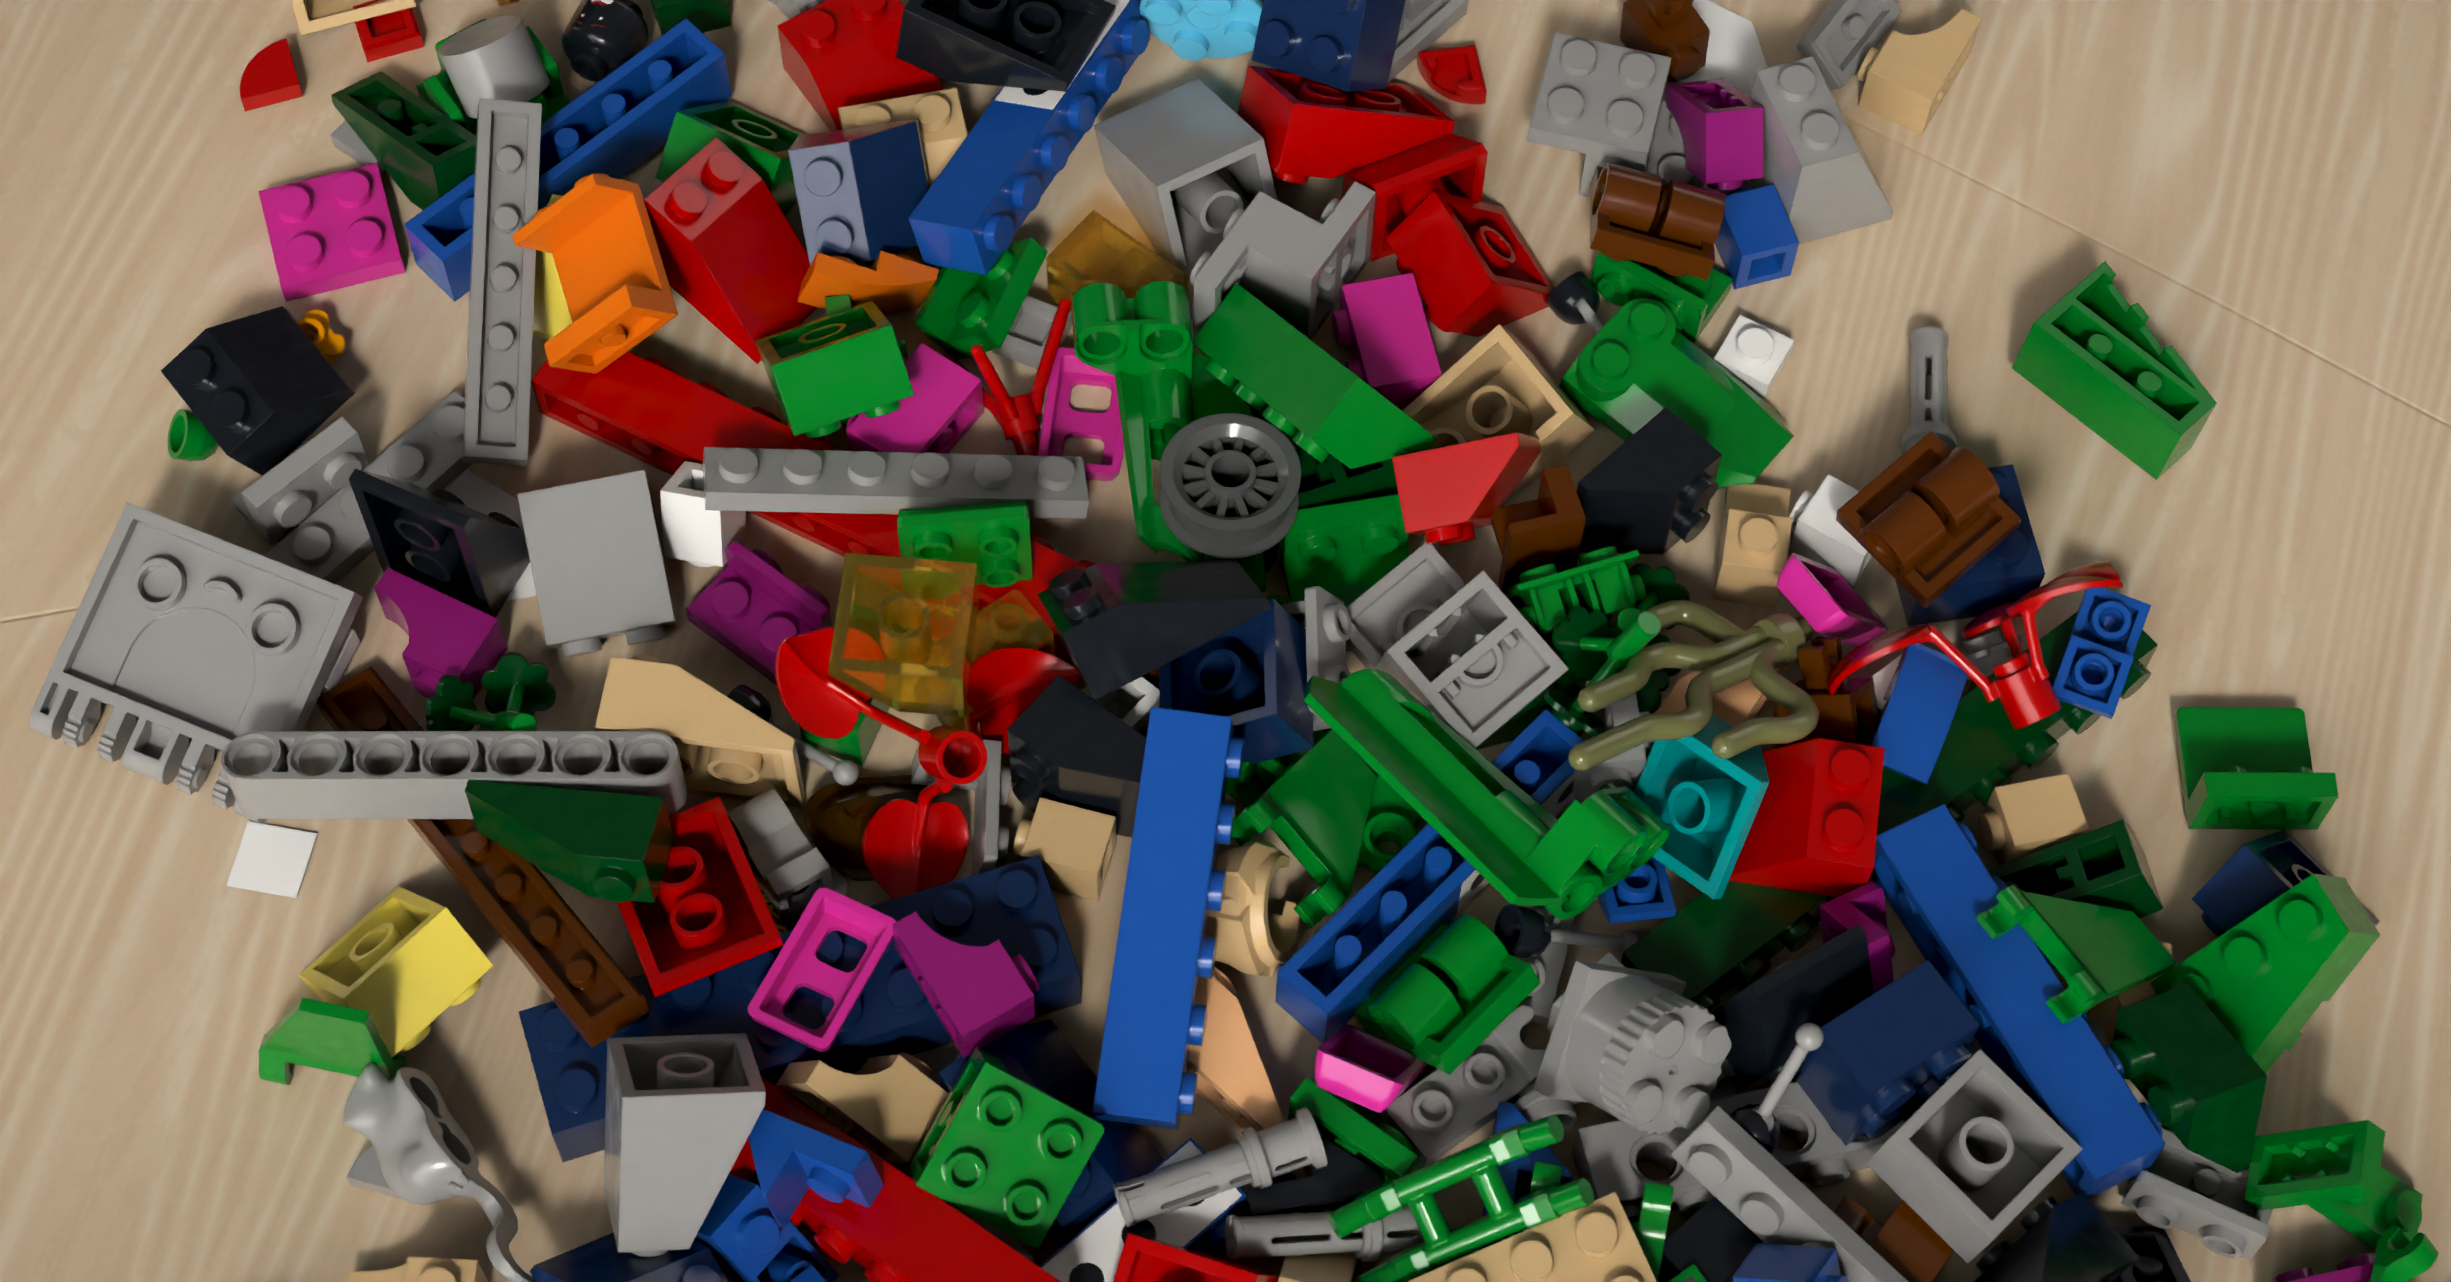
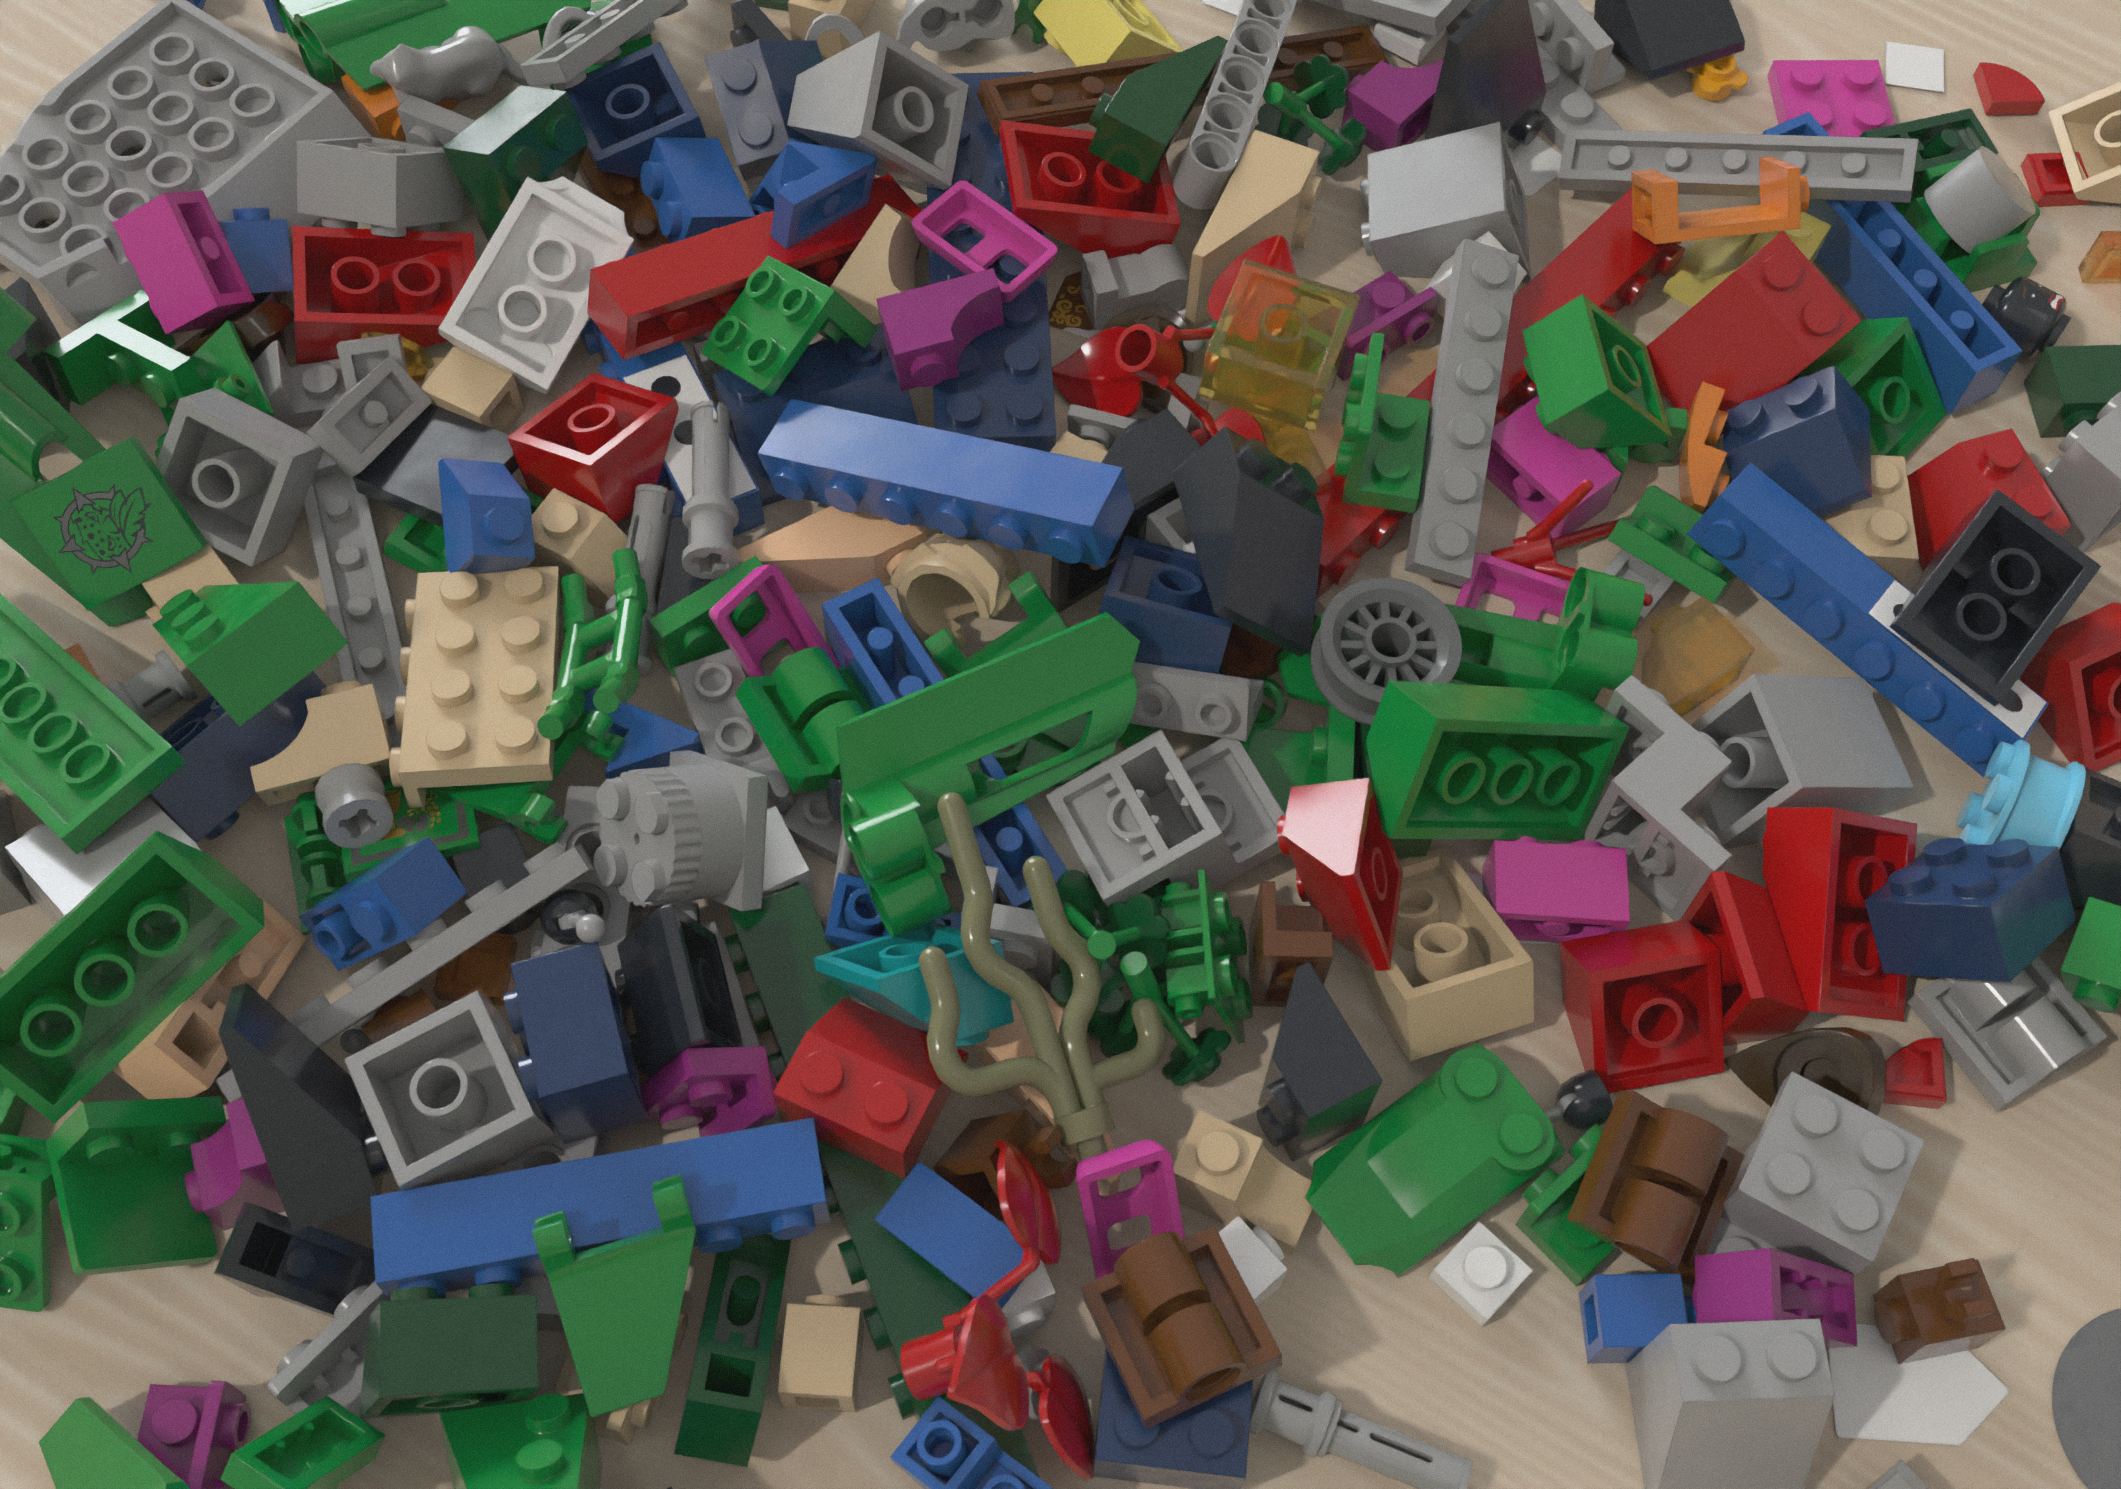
camera: 105 degrees right, 0 degrees up
(242, 165) = (1915, 66): none -> white sticker
(1490, 114) = (1829, 1056): none -> dark brown piece

